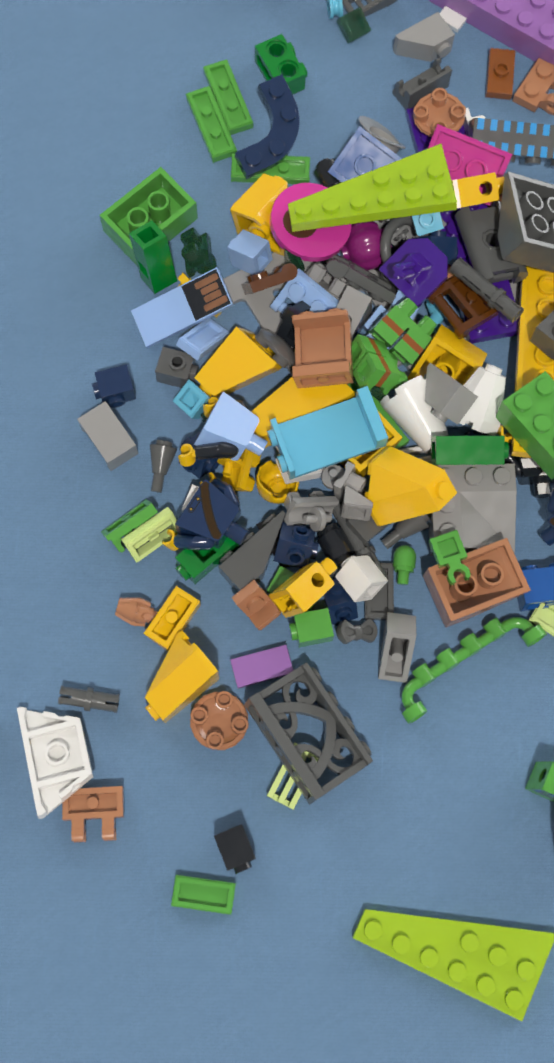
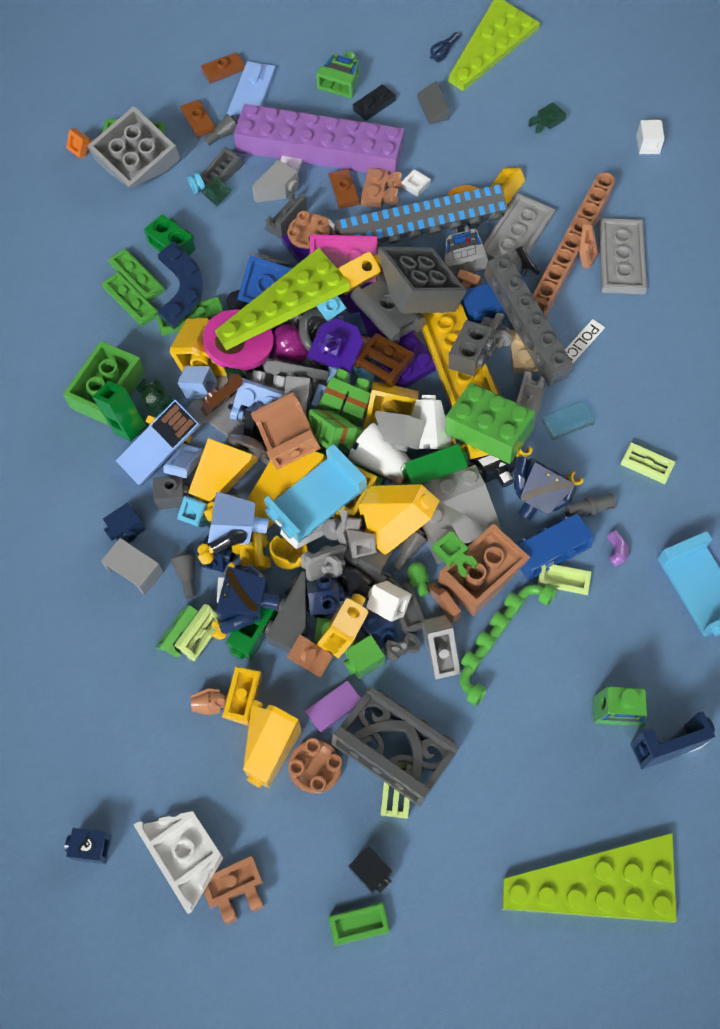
camera: 15 degrees left, 10 degrees down
(89, 699) = (194, 792): dark grey pin -> none
(421, 600) = (445, 602): none -> nougat tile
(494, 296) = (407, 344): dark grey pin -> none

